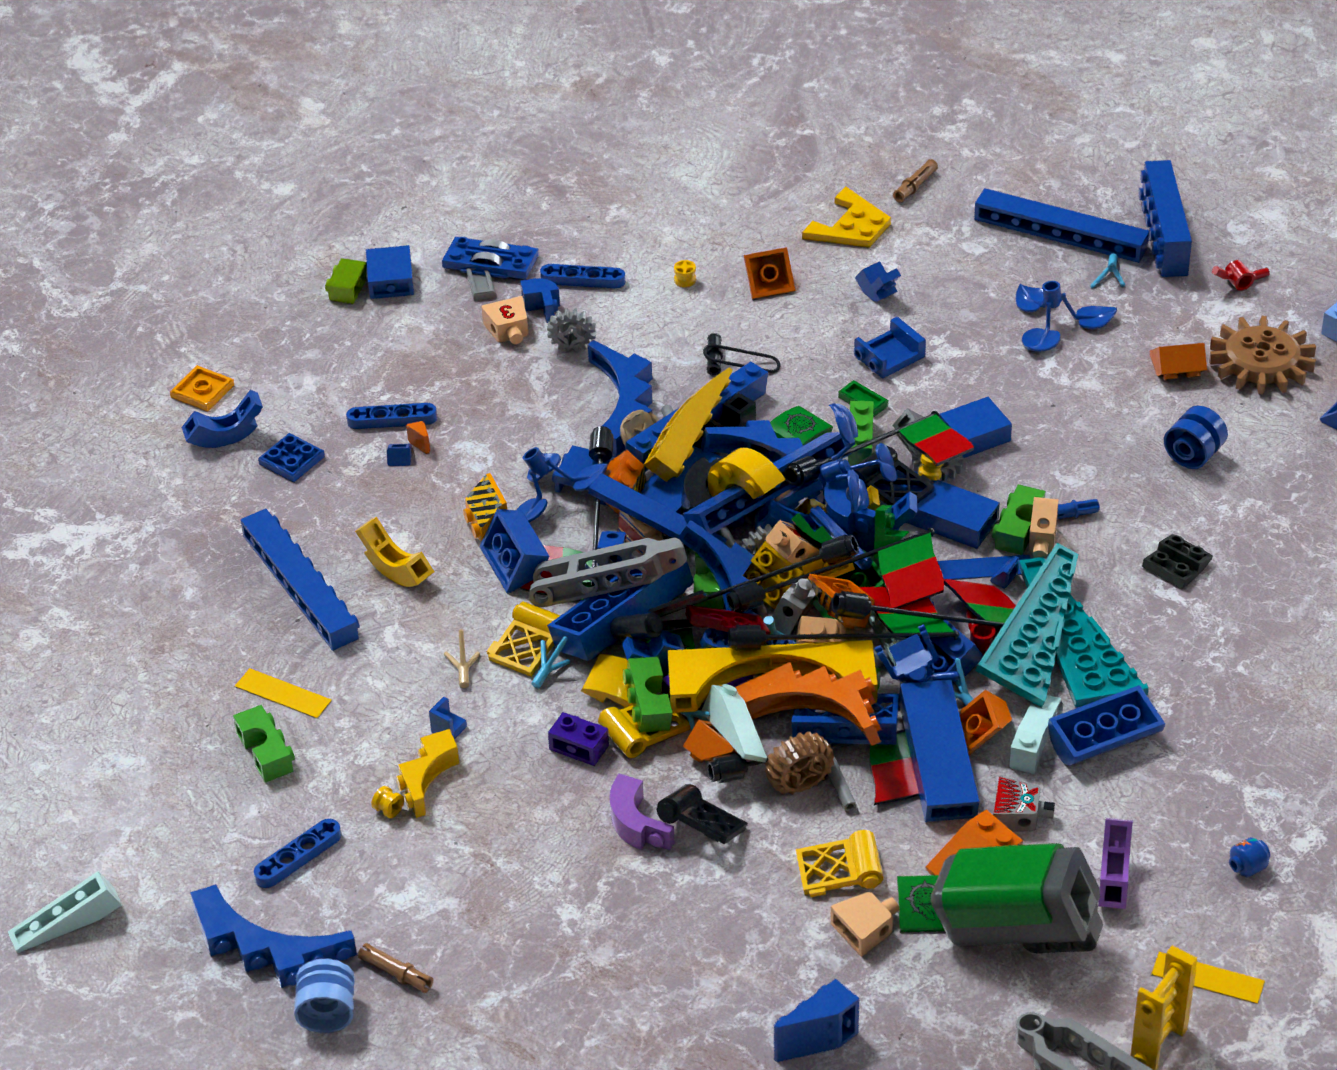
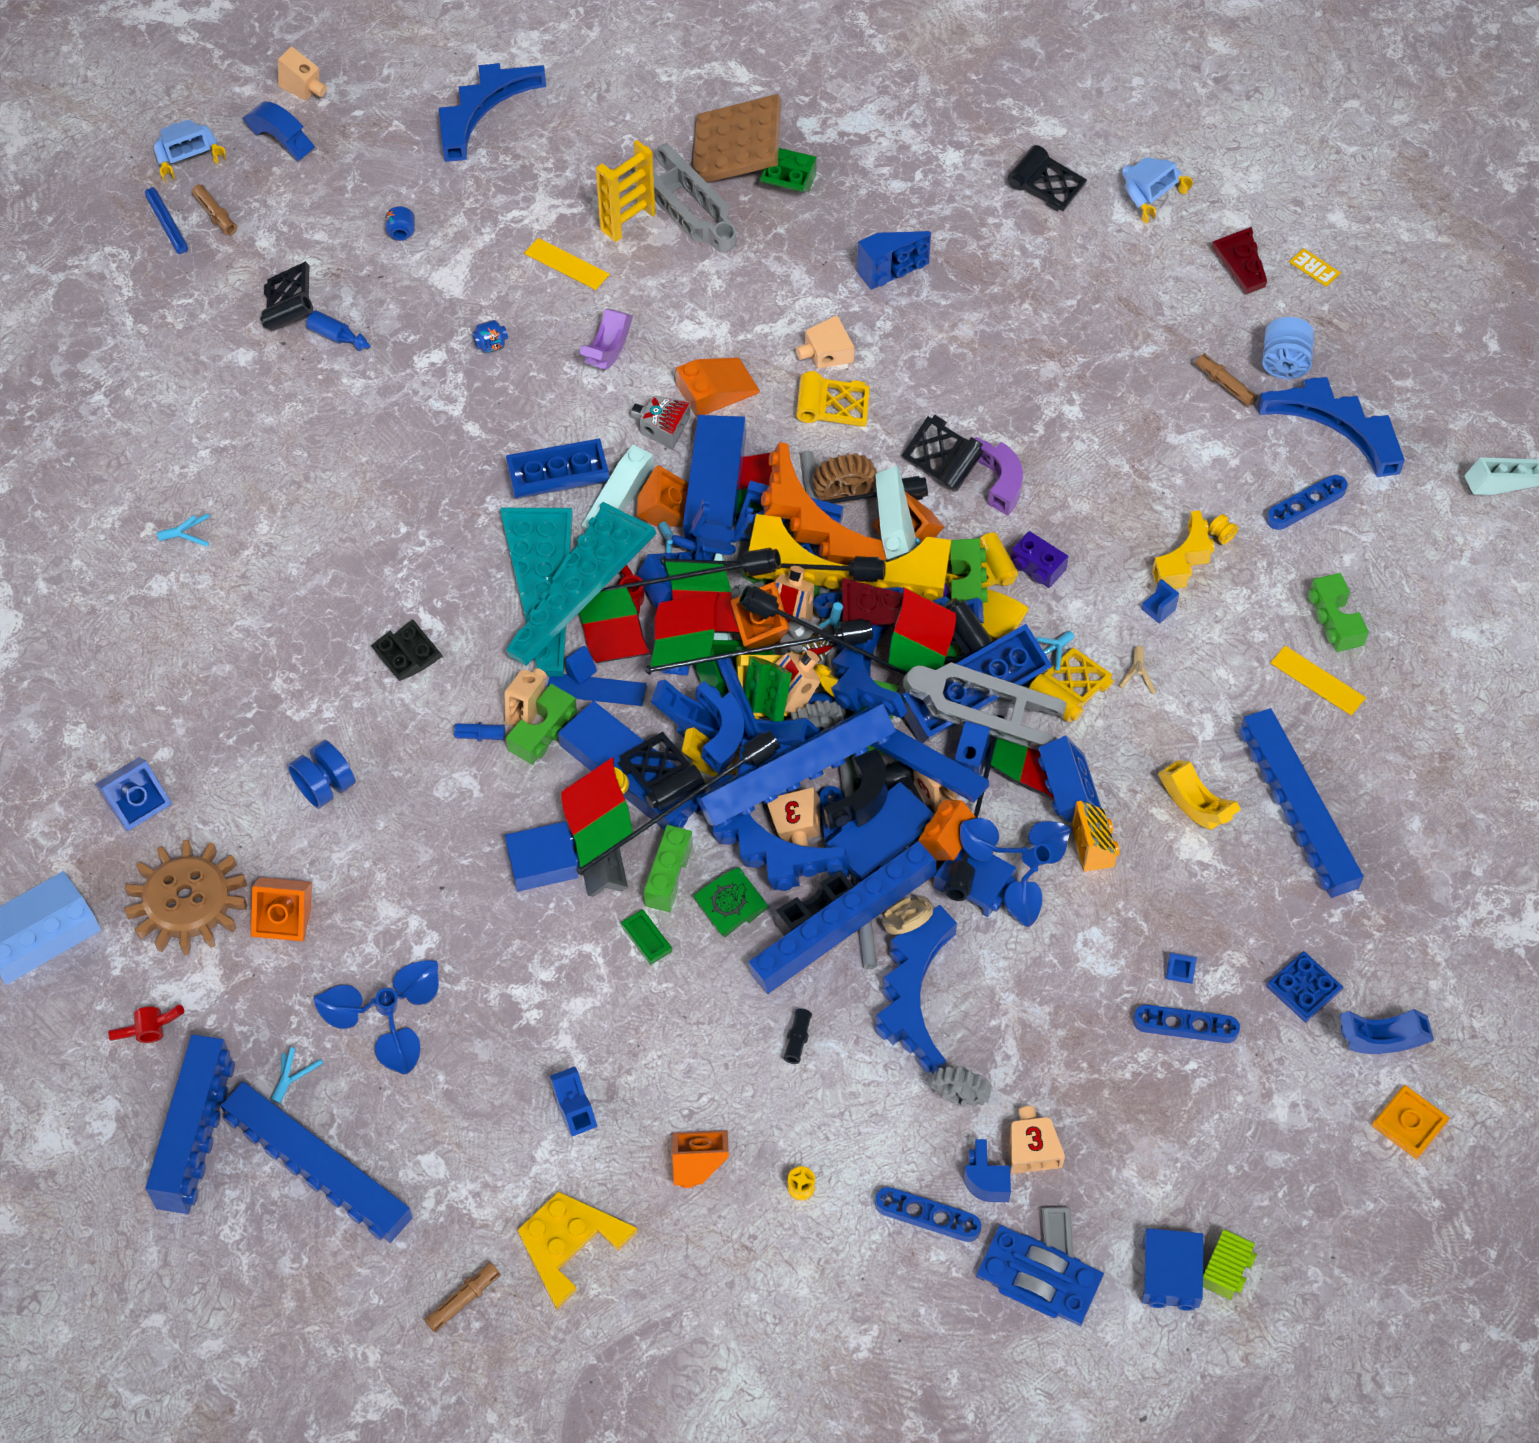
camera: 170 degrees left, 15 degrees up
(418, 436) = (1157, 974): orange slope -> none
(685, 428) = (860, 867): yellow slope -> none
(741, 351) = (766, 1026): black piece -> none
(746, 469) = (828, 752): yellow brick -> none
(841, 469) = (713, 730): blue plant -> none
(883, 523) = (687, 680): green slope -> none
(892, 349) = (595, 999): blue panel -> none
(915, 904) = (771, 354): green slope -> none
(1019, 896) = (708, 291): piece -> none

